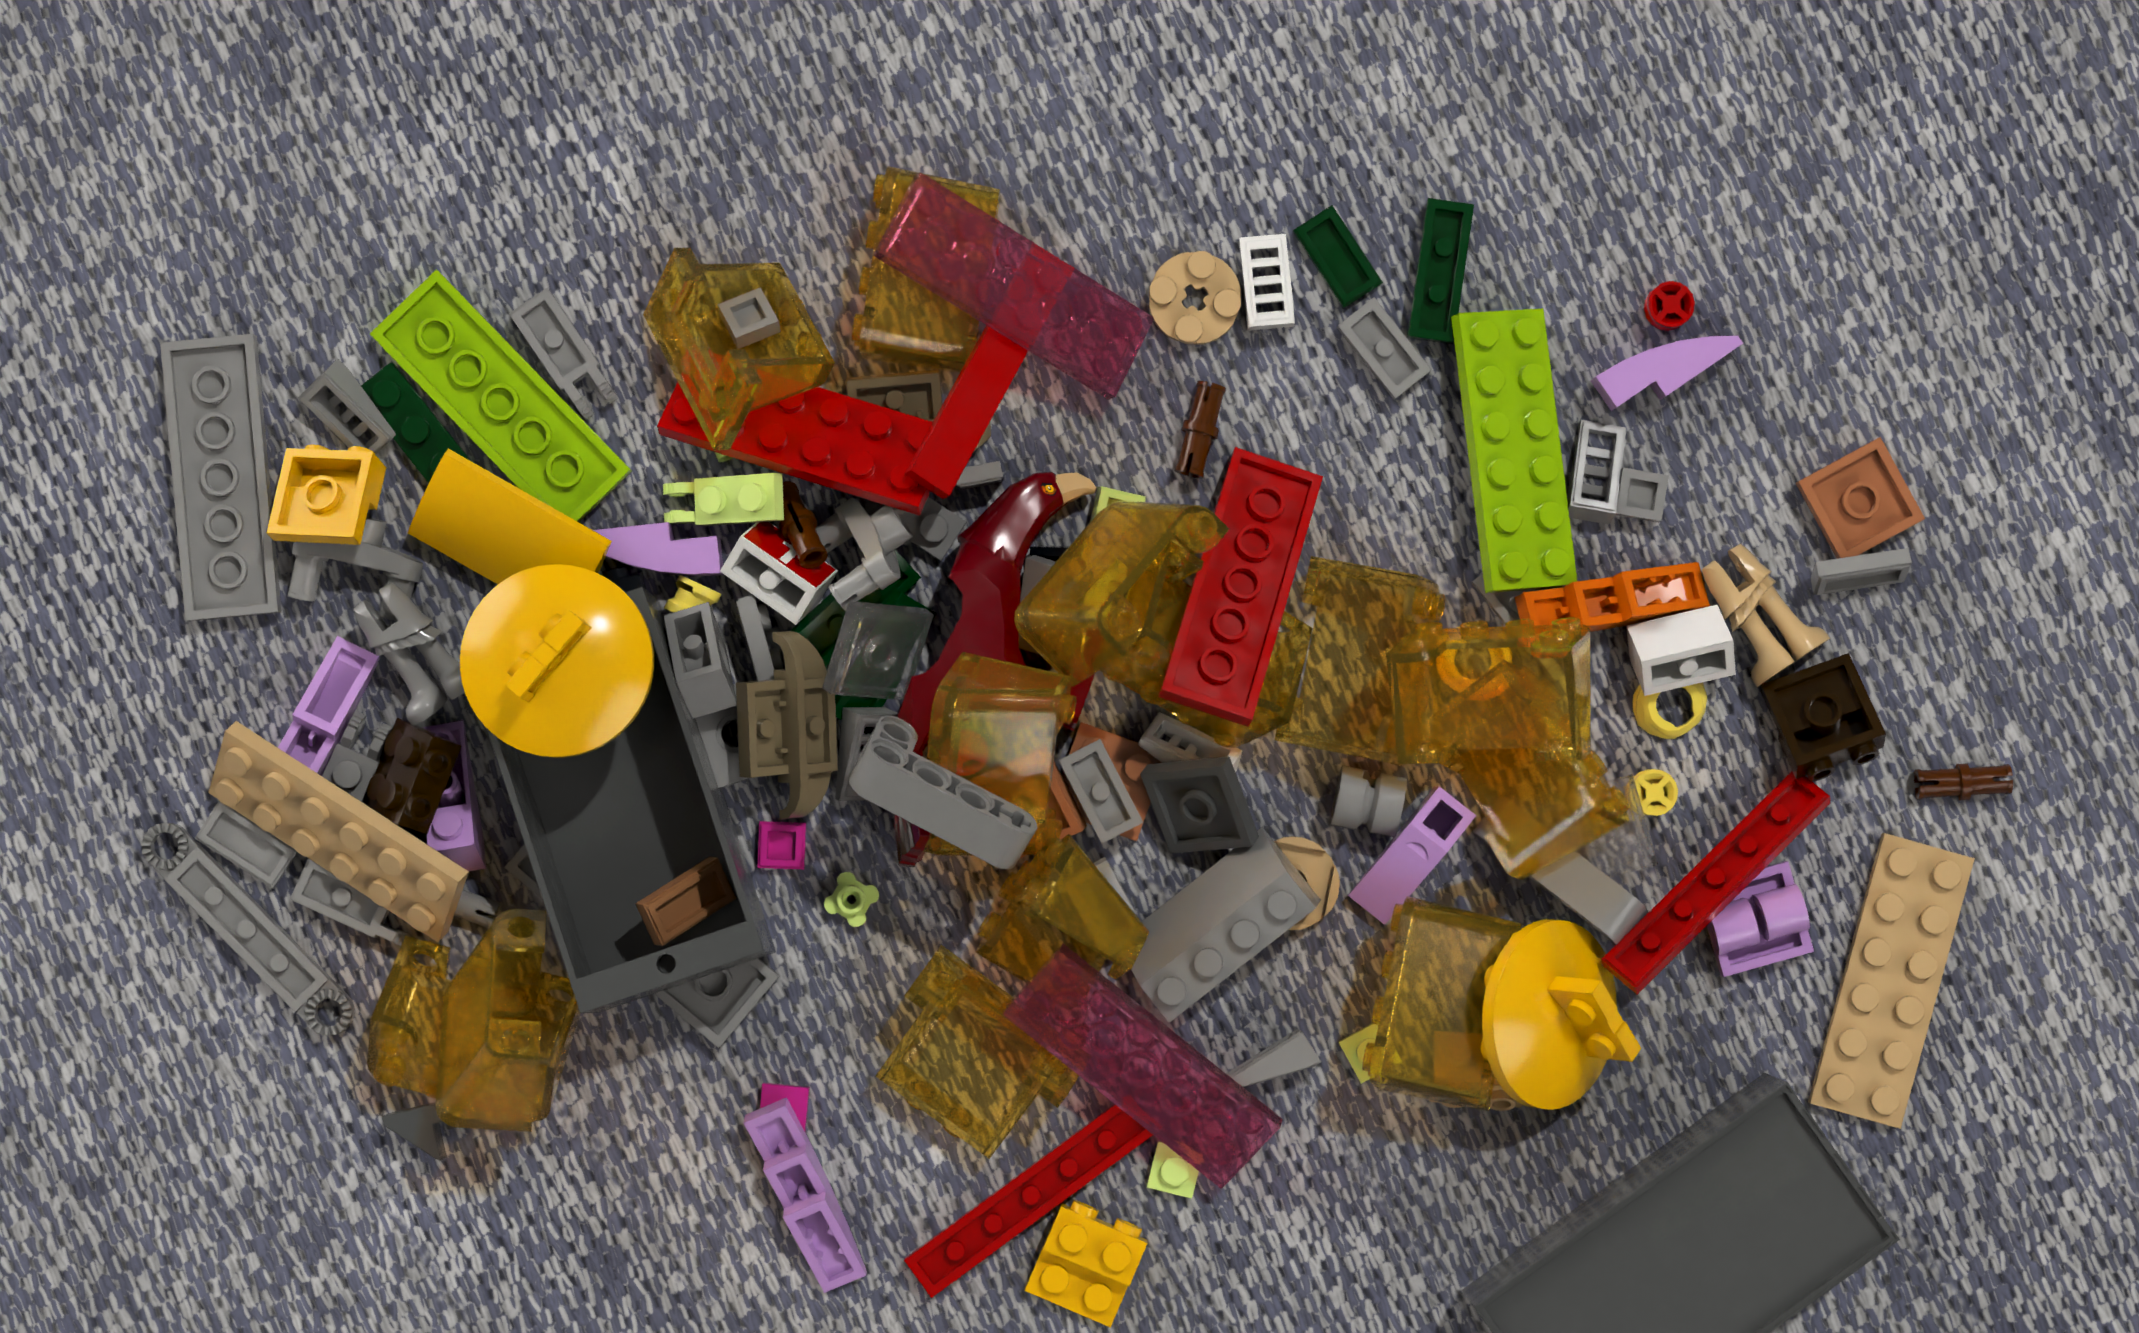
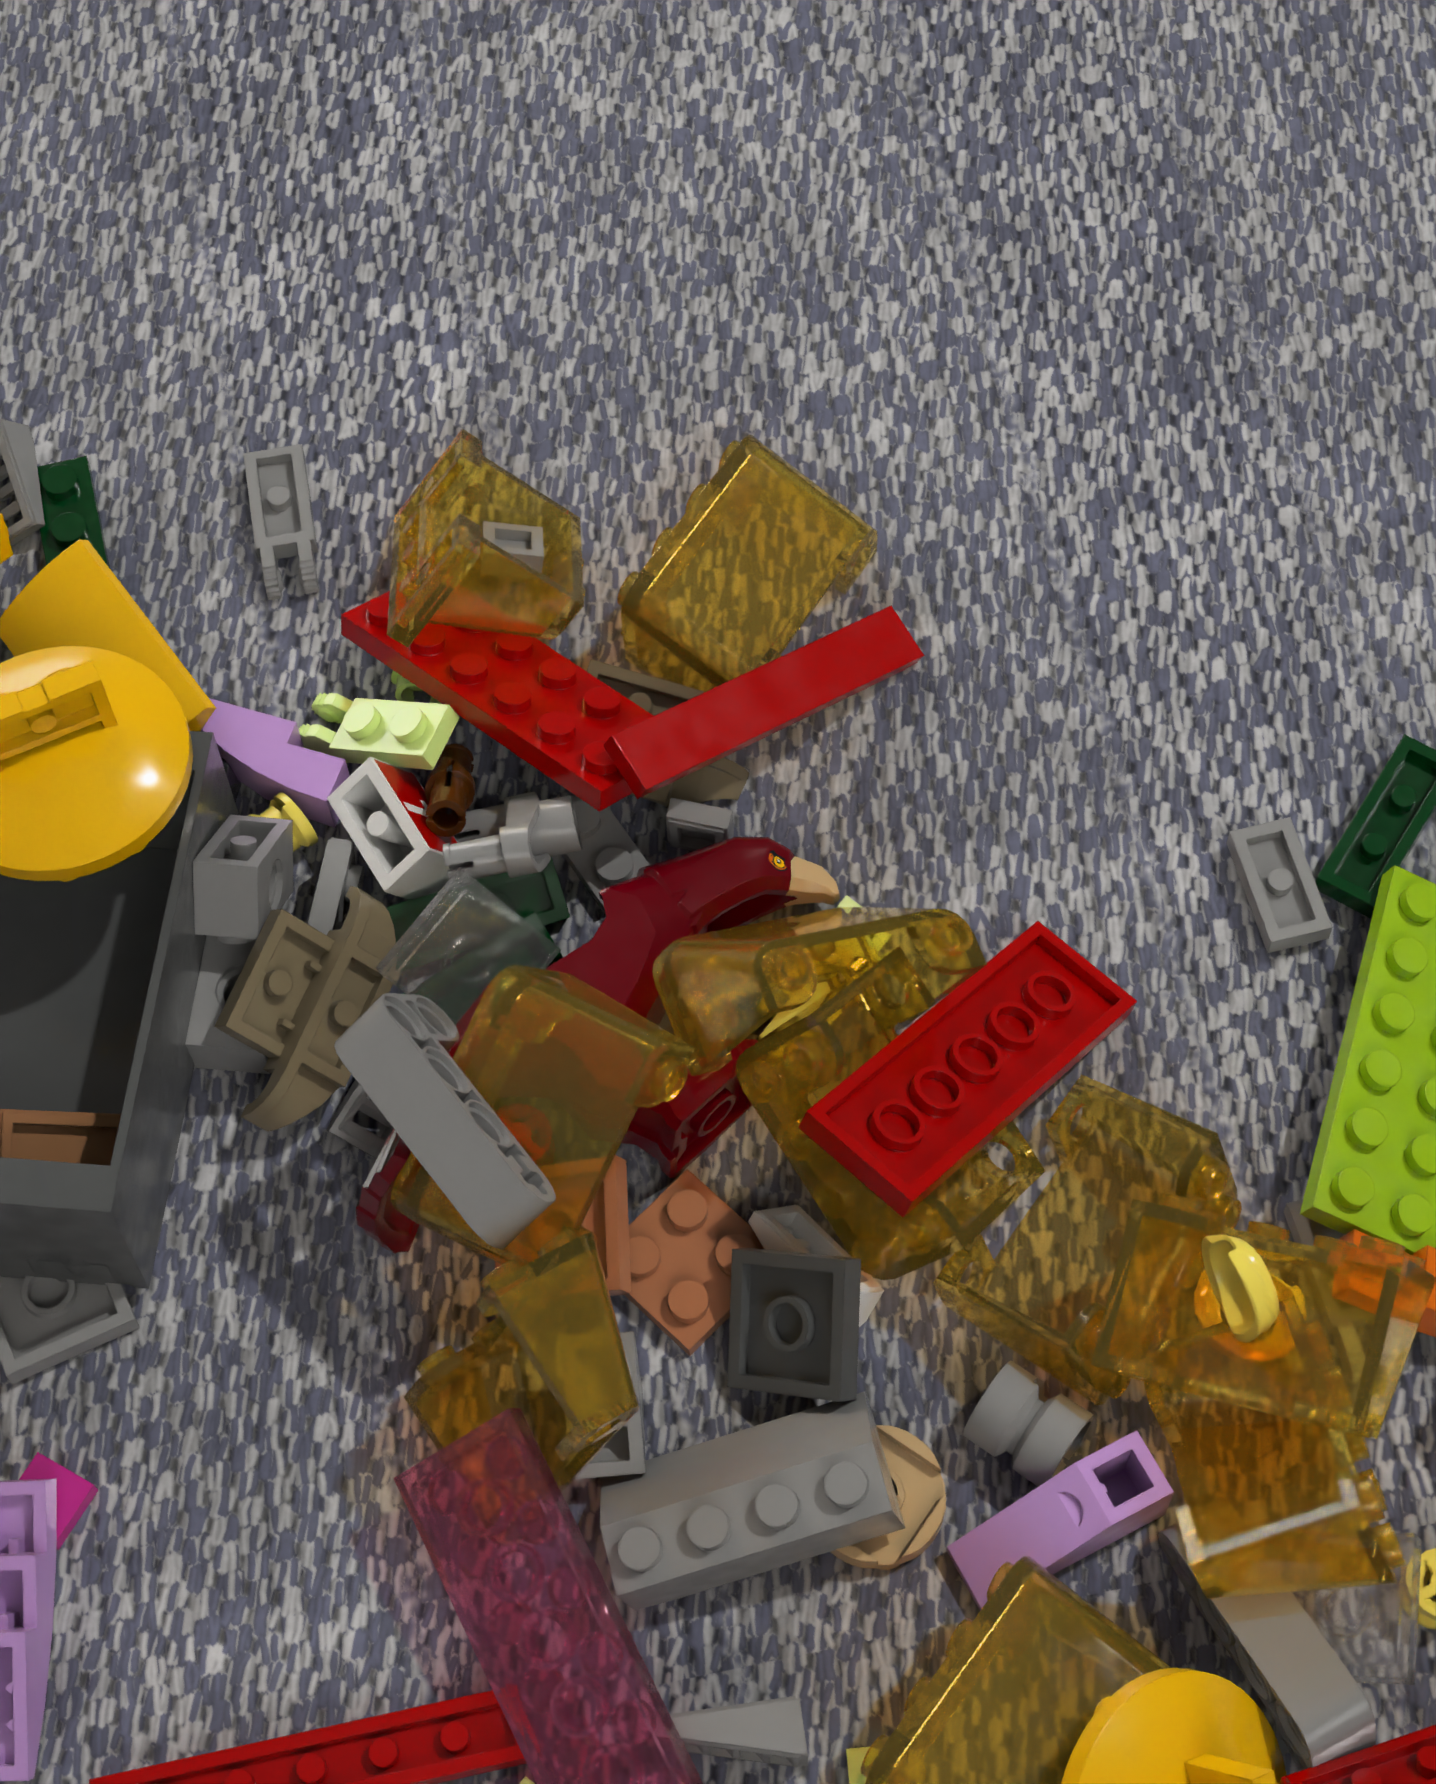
camera: 25 degrees right, 25 degrees down
(499, 399) = (184, 538): lime plate -> none
(781, 845) = (230, 1164): dark pink tile -> none
(838, 902) = (280, 1284): yellowish green plate -> none
(968, 1059) = (320, 1531): clear yellow windscreen -> none
(1014, 286) = (844, 624): clear pink plate -> none
(1100, 791) = (669, 1252): light grey plate -> none
(1189, 324) = (1078, 714): tan plate -> none
(1200, 429) = (1005, 883): reddish brown pin -> none
(1271, 319) = (1149, 798): white slope -> none
(1337, 256) = (1261, 765): dark green tile -> none
(1472, 676) = (1240, 1285): none -> light yellow piece

